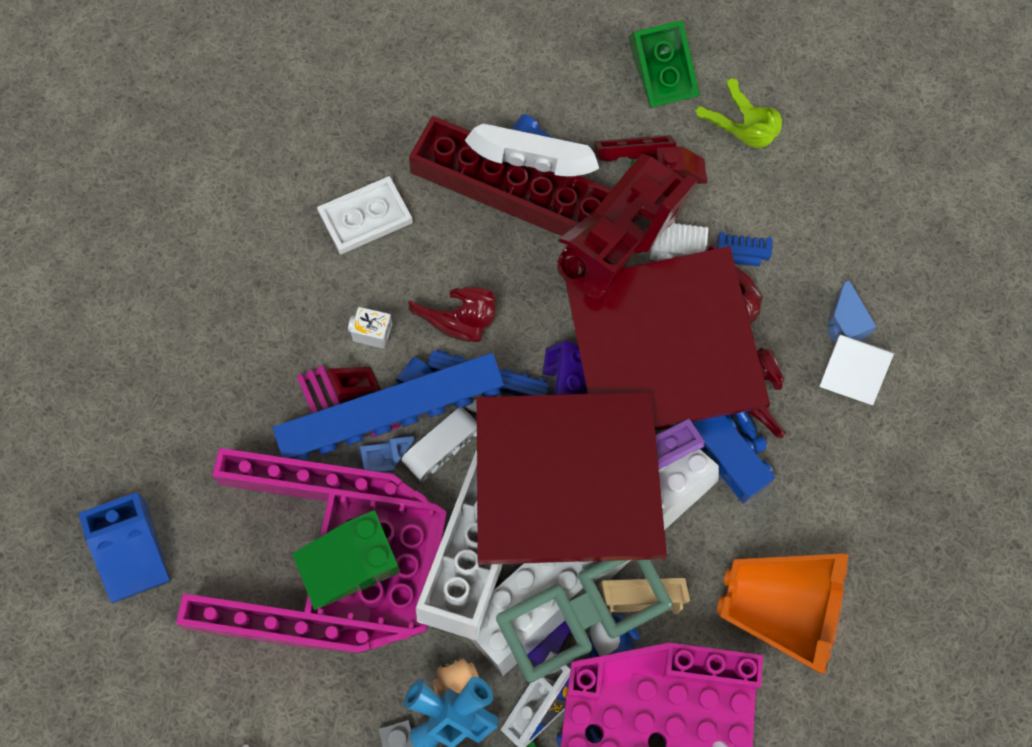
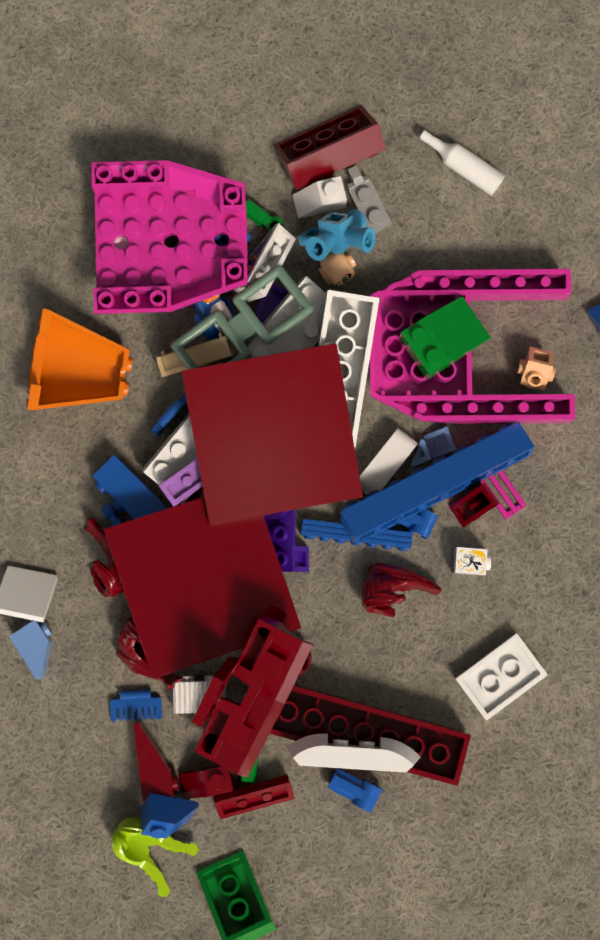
camera: 175 degrees right, 15 degrees up
(247, 518) = (537, 369): none -> light nougat brick
(682, 531) = (169, 414): none -> blue piece
(726, 137) = (165, 815): none -> blue slope
(731, 186) = (154, 770): none -> dark red slope

